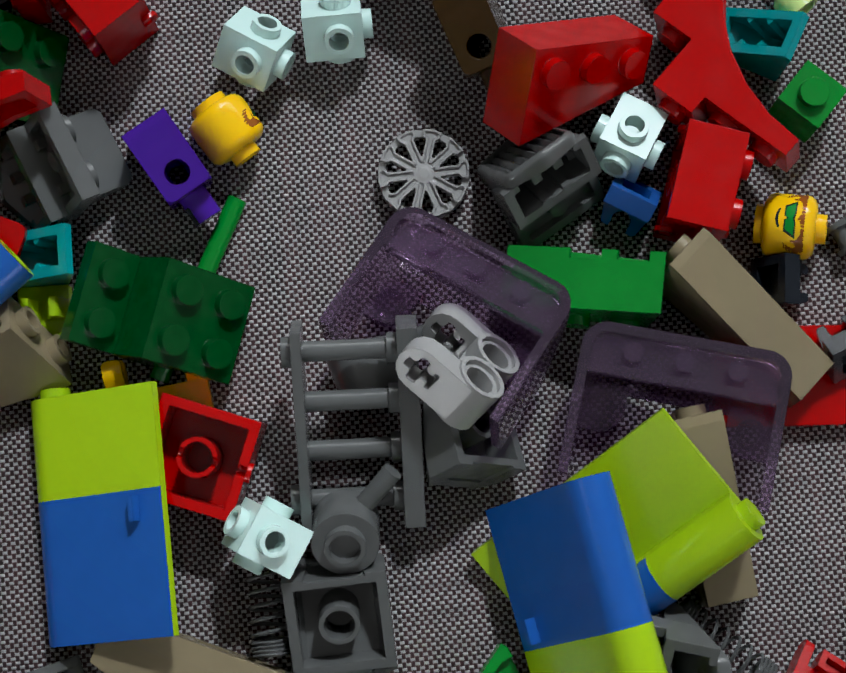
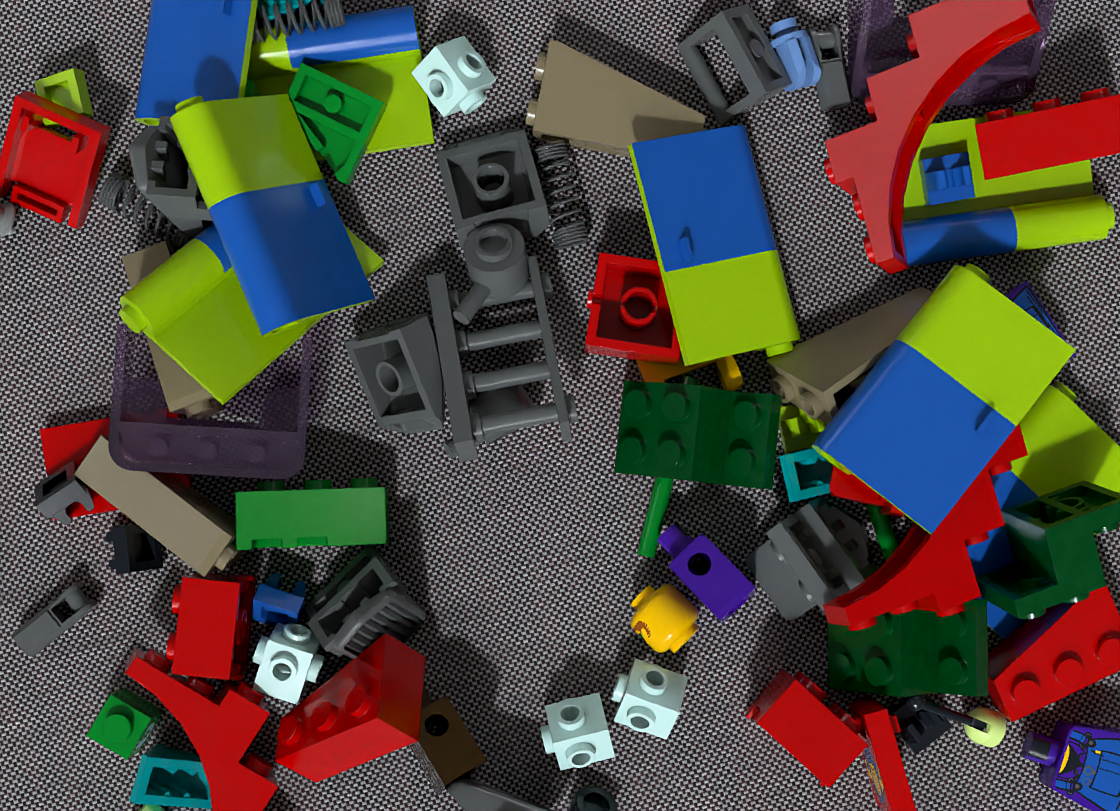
camera: 170 degrees right, 5 degrees up
(265, 537) = (565, 243): light aqua brick -> none
(423, 173) = (475, 603): light grey wheel -> none
(435, 264) = (414, 499): clear purple windscreen -> none
(468, 371) = (407, 418): light grey piece -> none
(789, 225) = (129, 601): yellow head -> none

